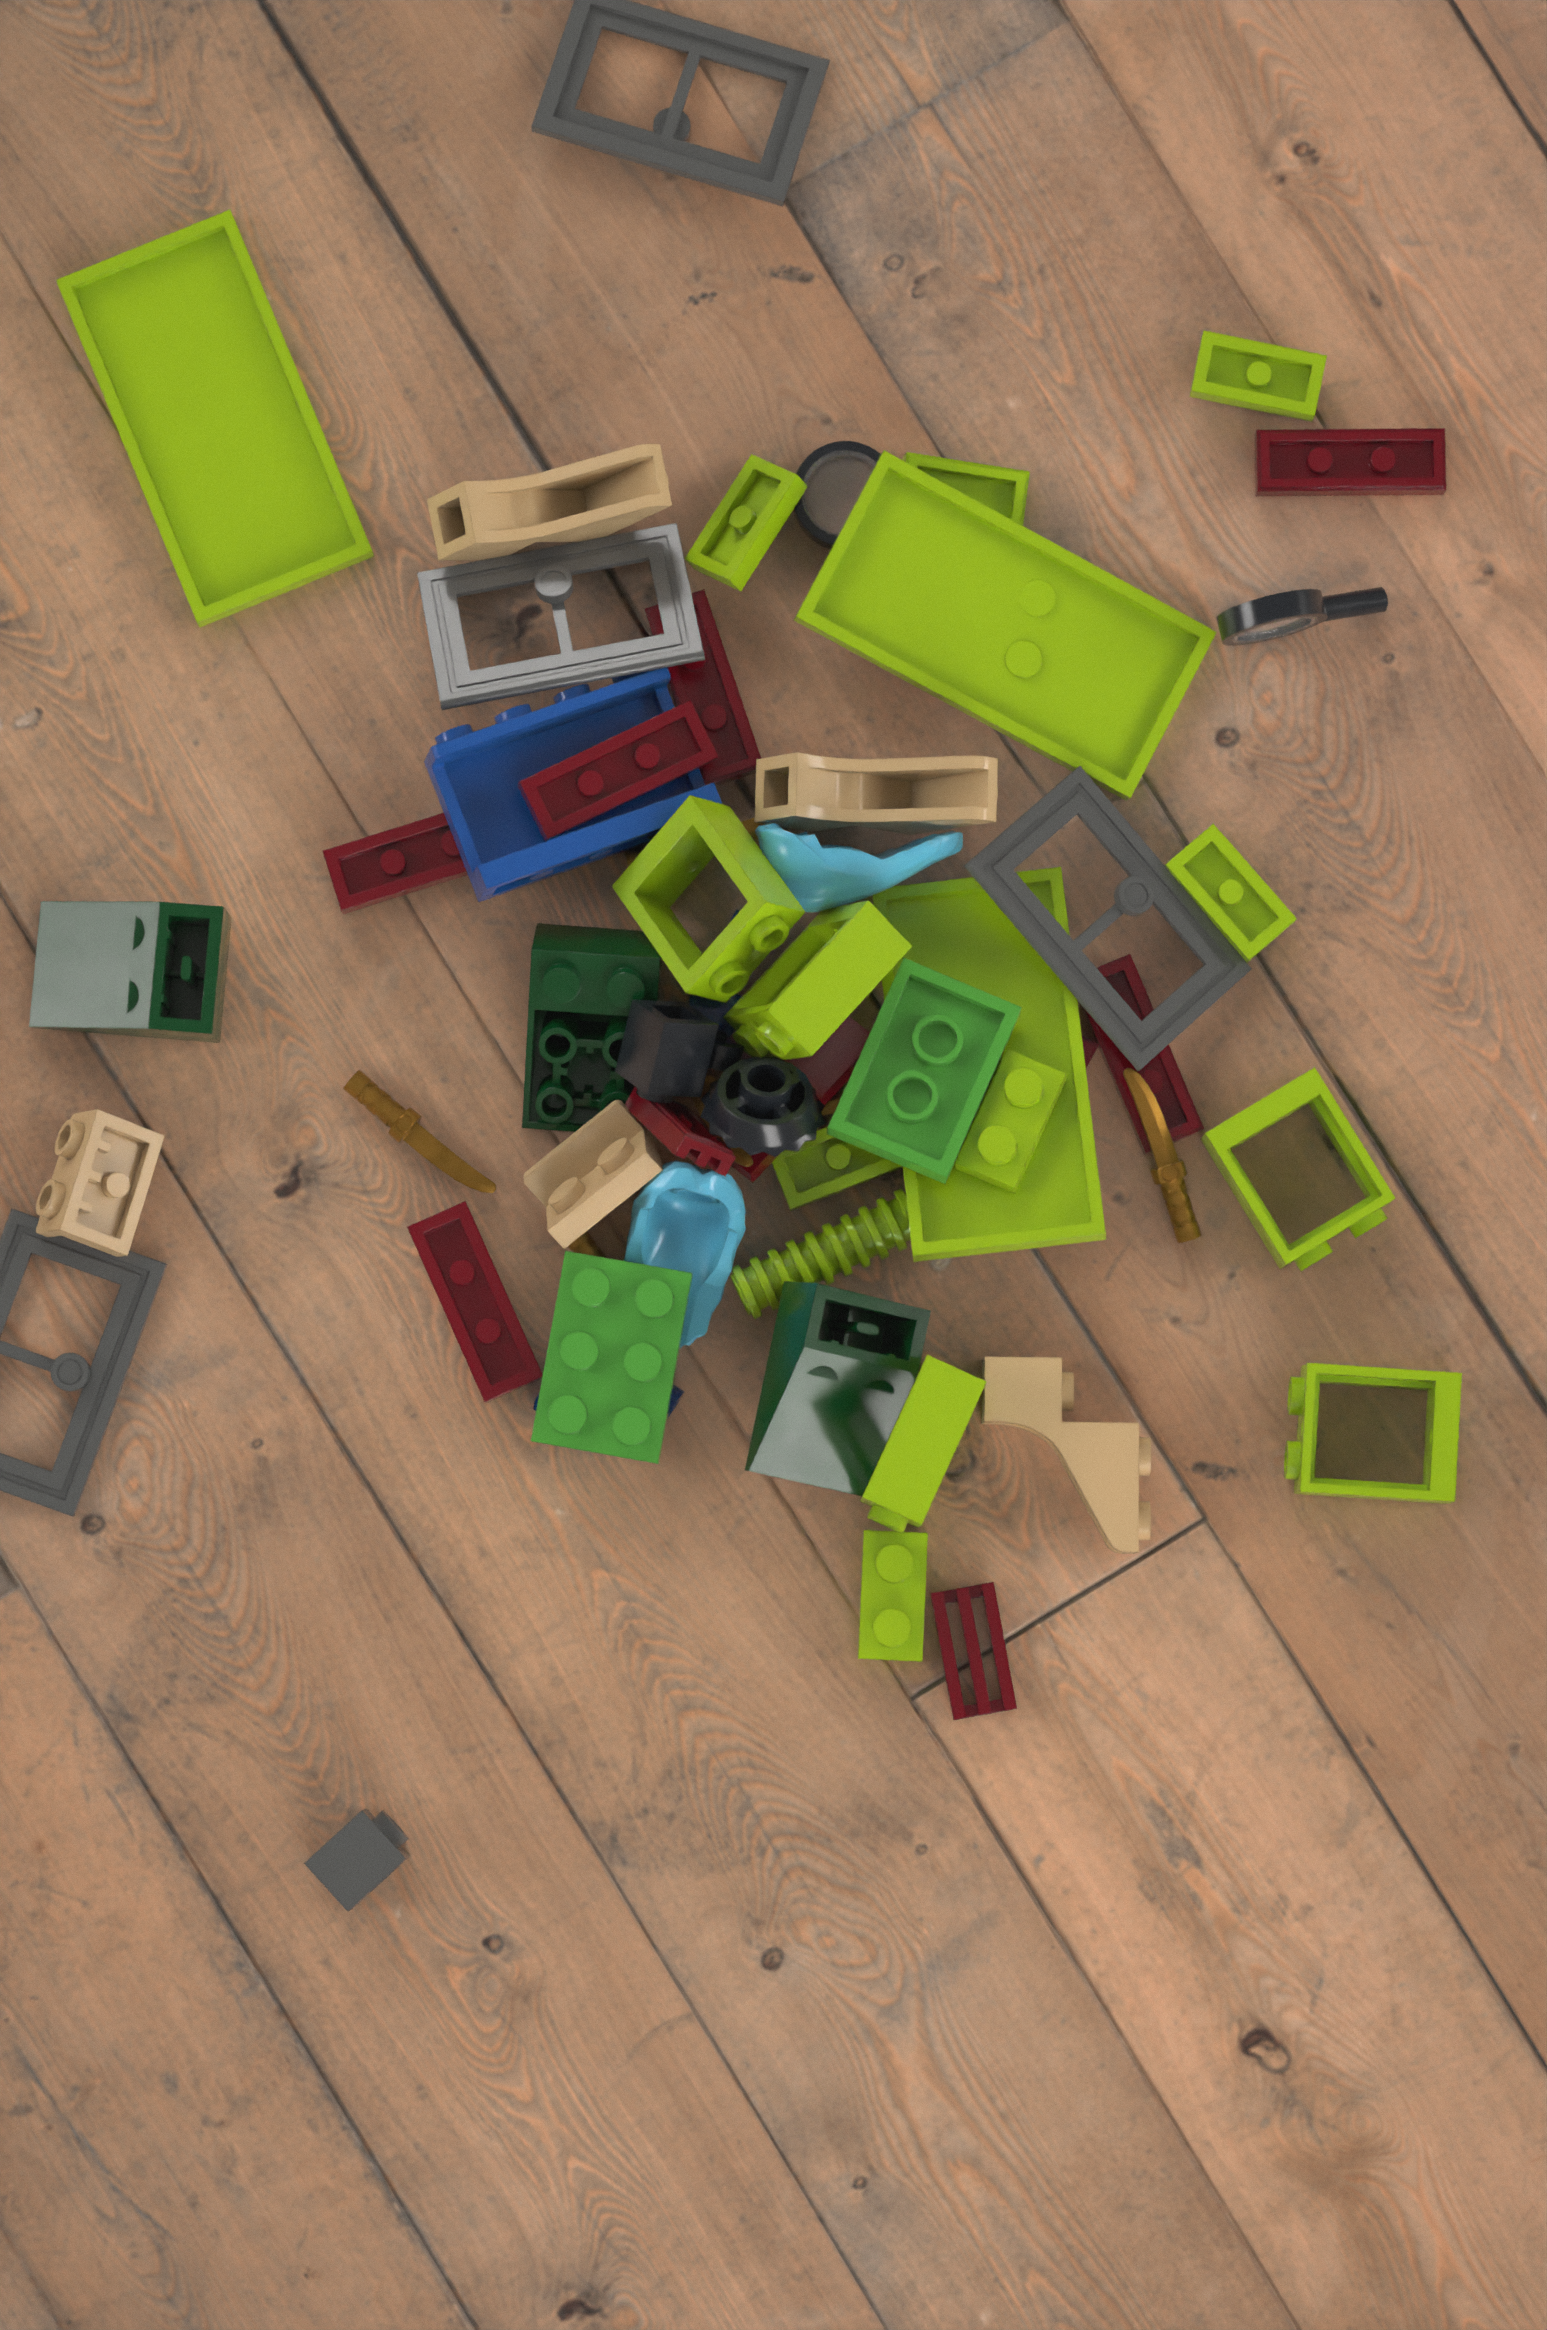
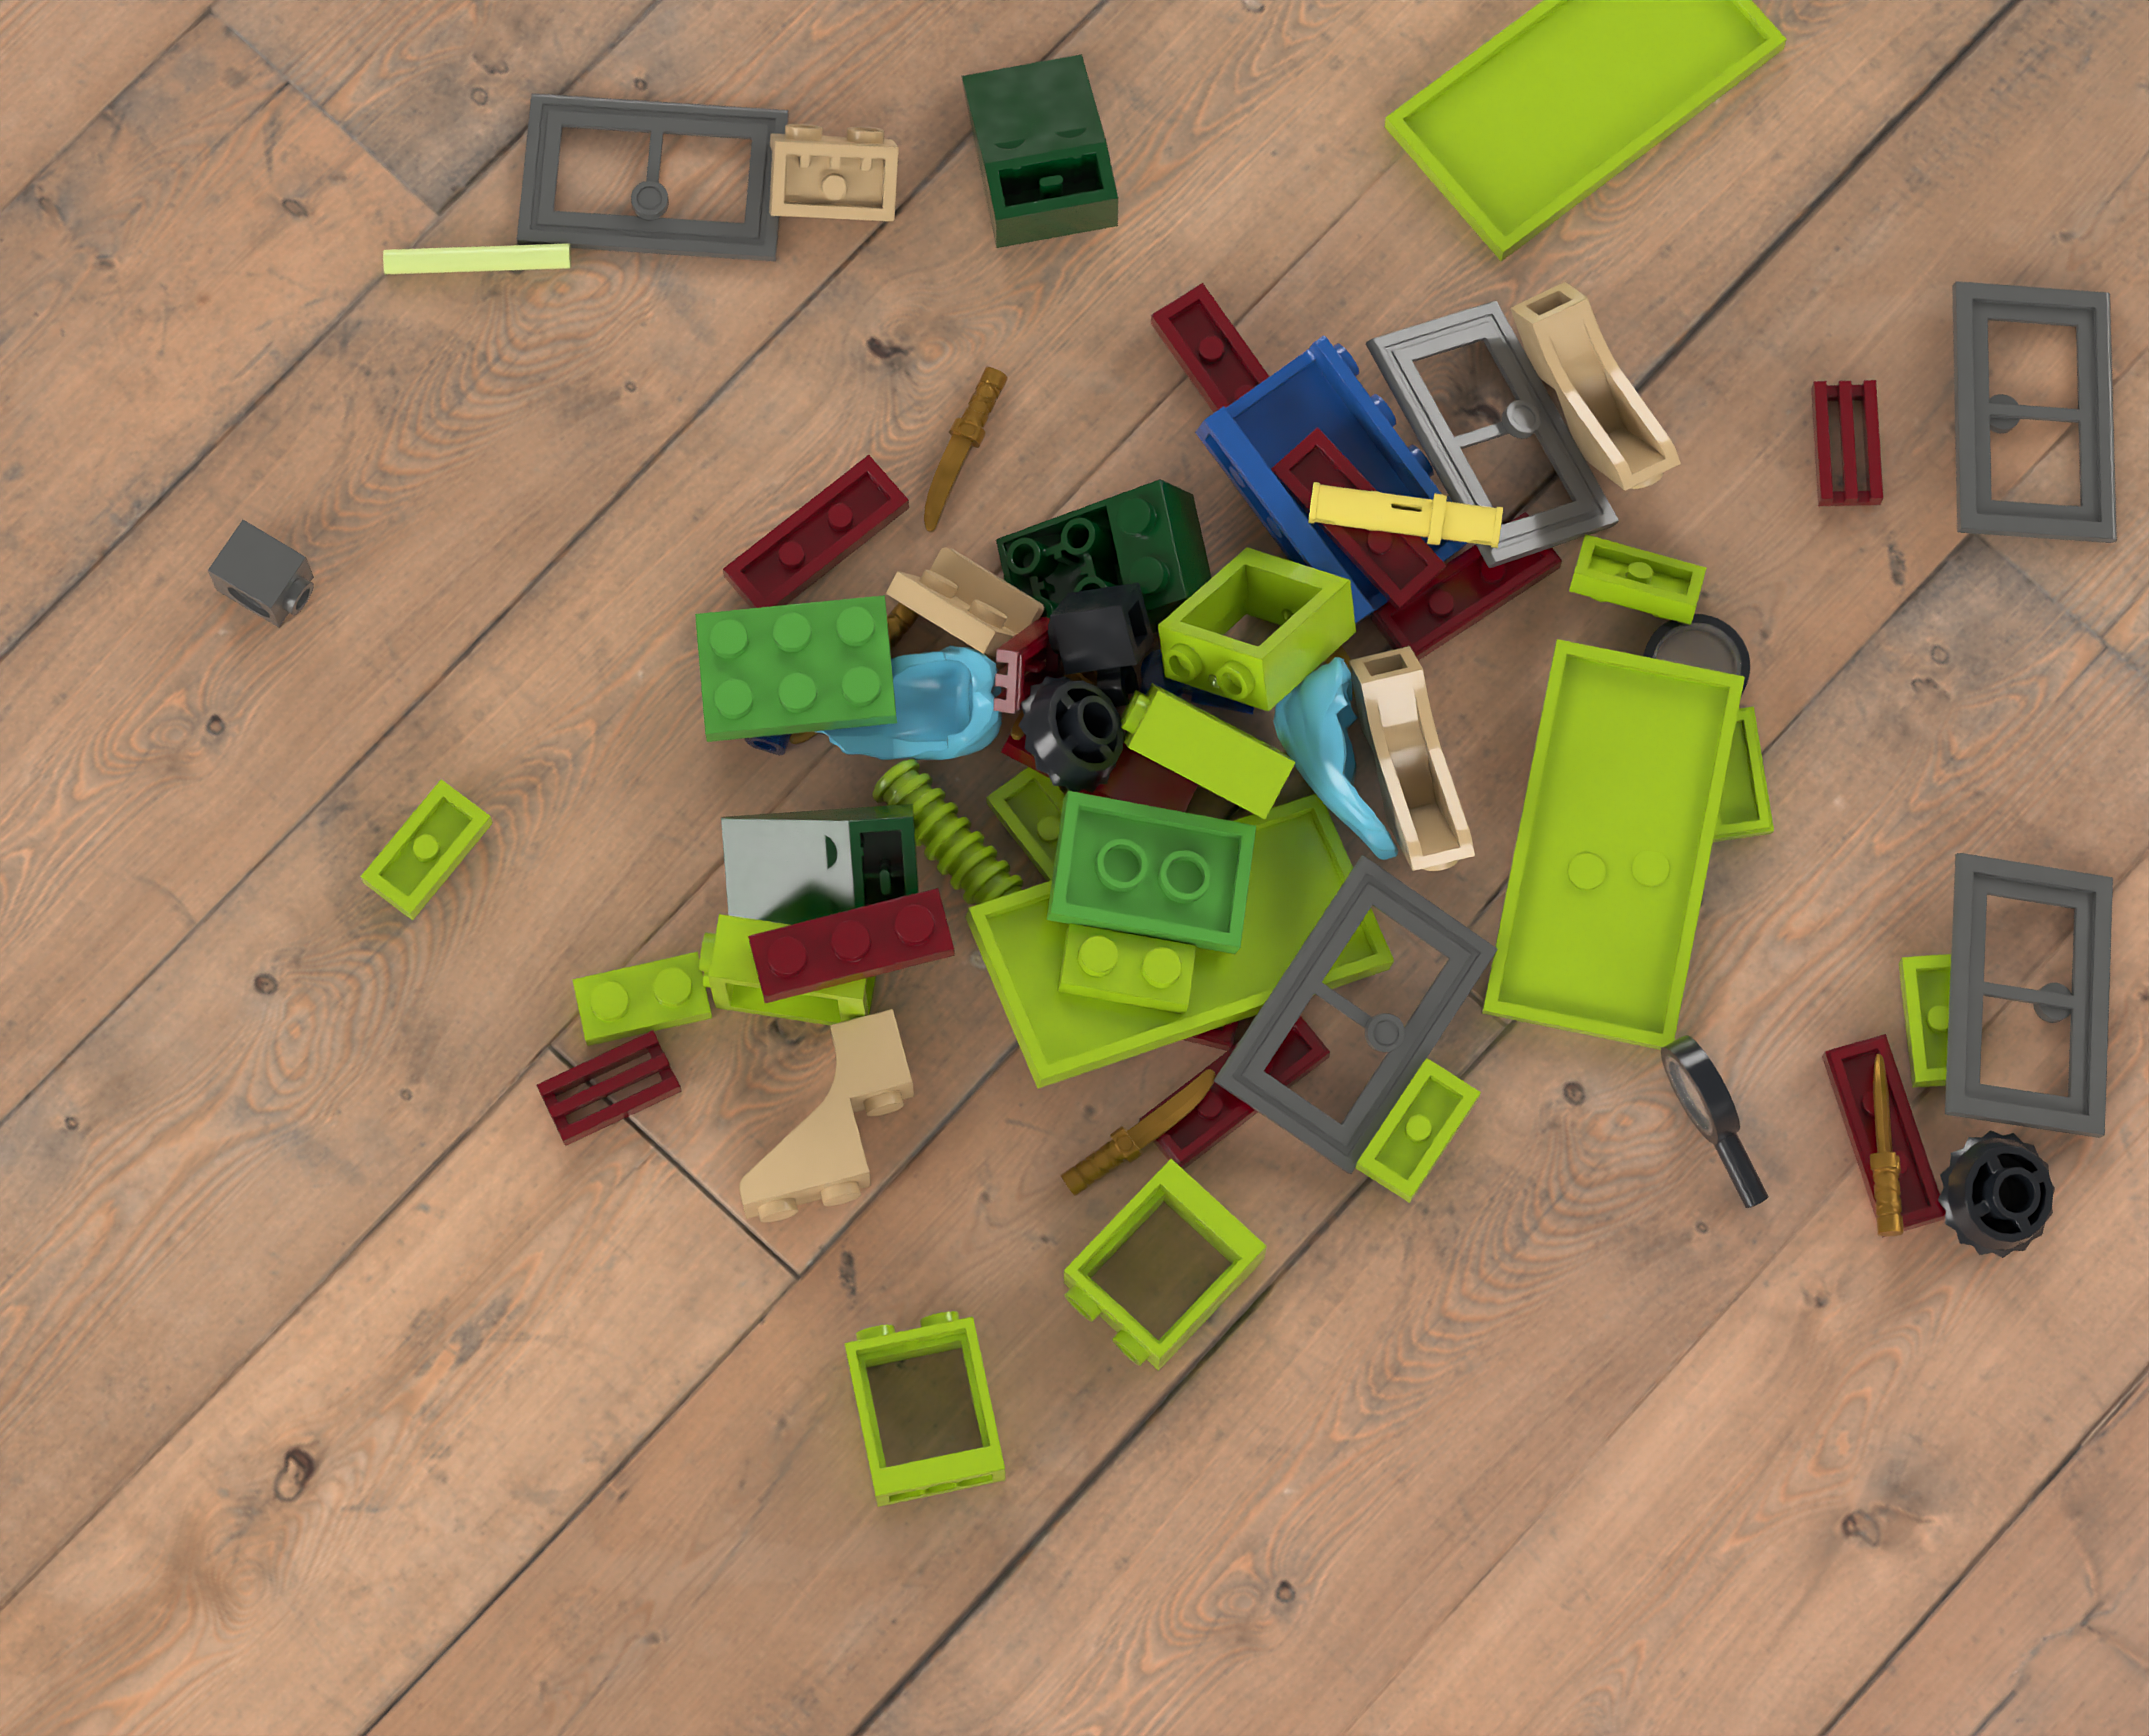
camera: 75 degrees right, 10 degrees down
(80, 1561) = (477, 258): none -> yellowish green bar
(646, 700) = (1406, 515): none -> light yellow pin
(668, 259) = (1845, 394): none -> dark red tile
(687, 1766) = (426, 849): none -> lime plate
(933, 1377) = (851, 945): none -> dark red plate
(1276, 234) = (2087, 1002): none -> dark grey door
(1387, 468) = (1885, 1162): none -> pearl gold piece
(1439, 374) = (1997, 1194): none -> black piece

